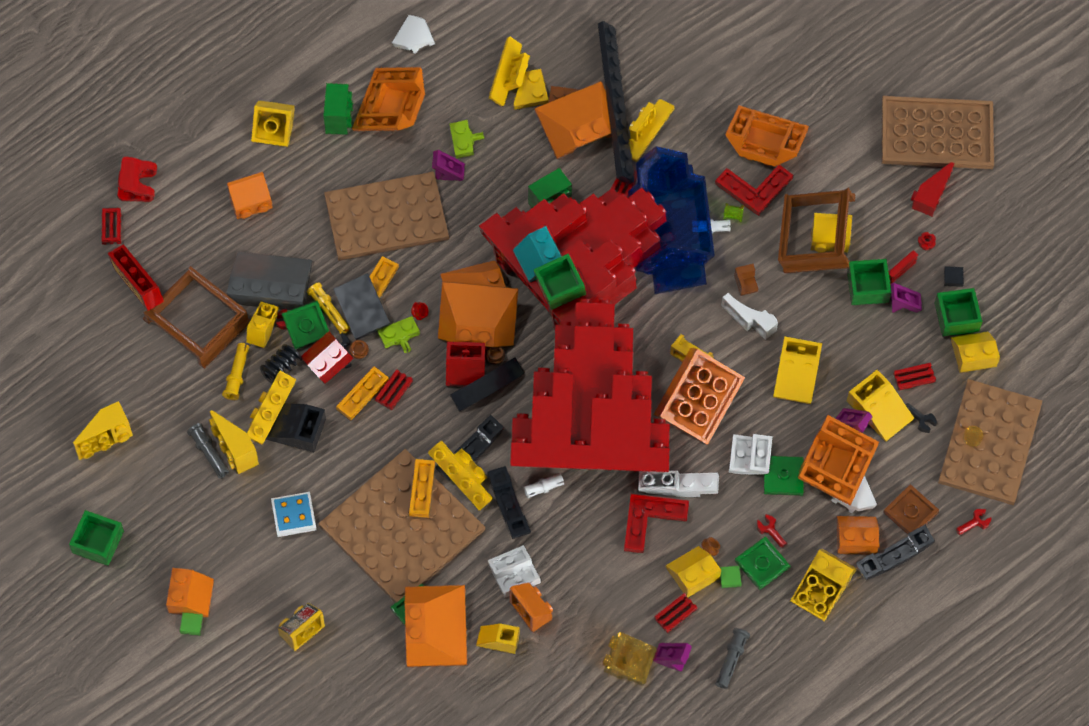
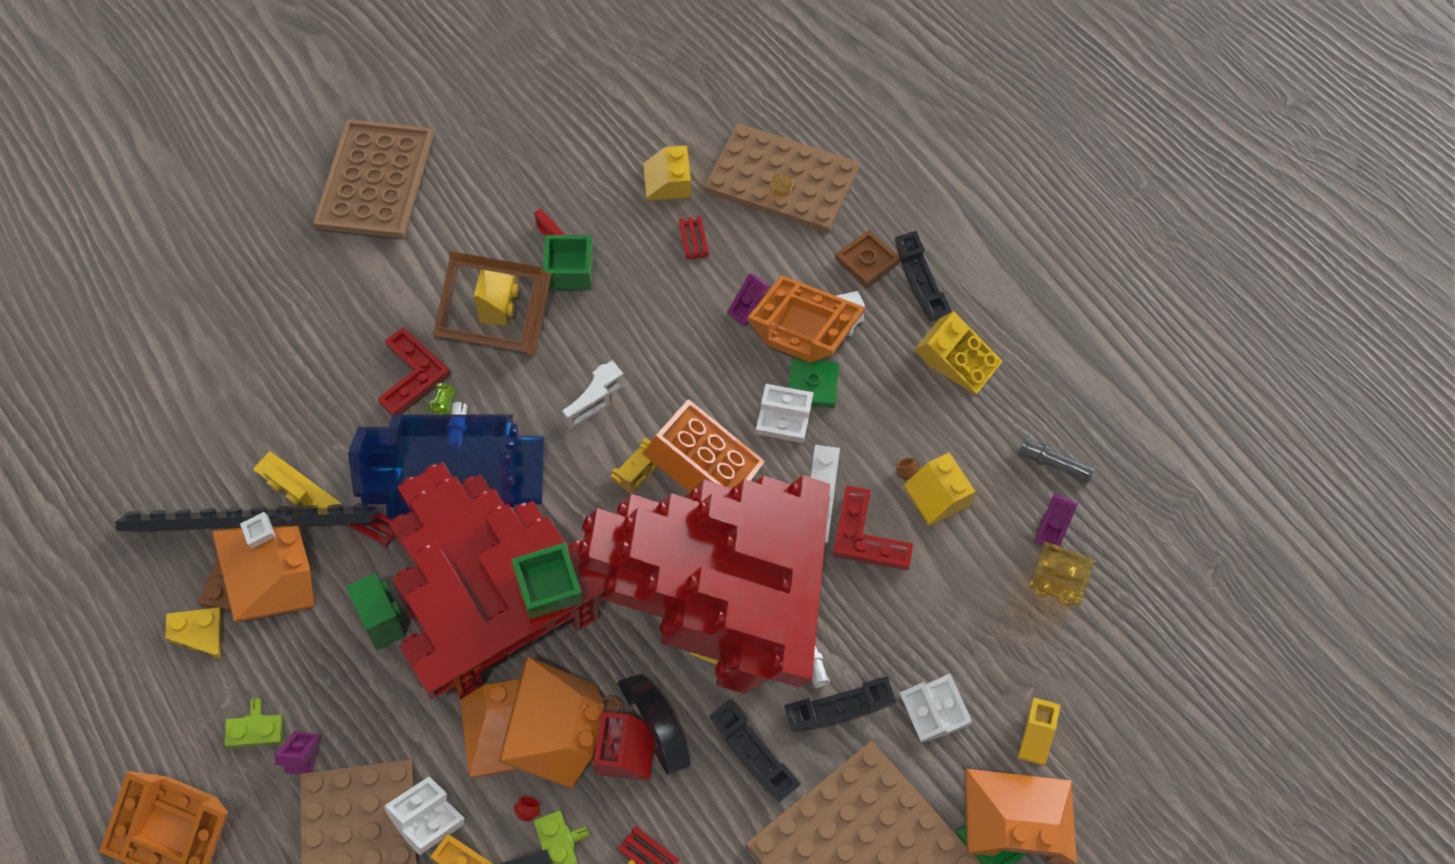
camera: 85 degrees left, 5 degrees down
(409, 248) = (424, 815): none -> white slope
(413, 34) = (58, 788): white slope -> none
(422, 488) = (817, 818): light orange plate -> none
(463, 473) = (794, 760): yellow bracket -> none
(509, 71) = (161, 652): yellow bracket -> none
(530, 606) = (993, 686): orange slope -> none
(536, 251) = (496, 609): teal slope -> none
(599, 106) = (257, 530): none -> white plate
(687, 602) = (1002, 514): red tile -> none
(730, 577) = (942, 447): bright green tile -> none
(745, 279) = (541, 397): dark orange panel -> none
(762, 563) = (930, 415): green plate -> none
(765, 136) = (342, 349): orange slope -> none
(771, 530) = (883, 404): red bar -> none
(797, 370) = (676, 349): yellow slope -> none
(857, 535) = (895, 312): orange slope -> none
(883, 403) = (725, 270): yellow slope -> none
(905, 298) = (598, 229): magenta slope -> none
(922, 419) = (748, 237): black bar -> none
(924, 244) = (520, 209): red plate -> none
(930, 192) = (457, 192): red slope -> none
(953, 276) = (568, 186): black tile -> none
(958, 312) = (620, 181): green piece -> none
(976, 521) = (880, 201): red bar -> none

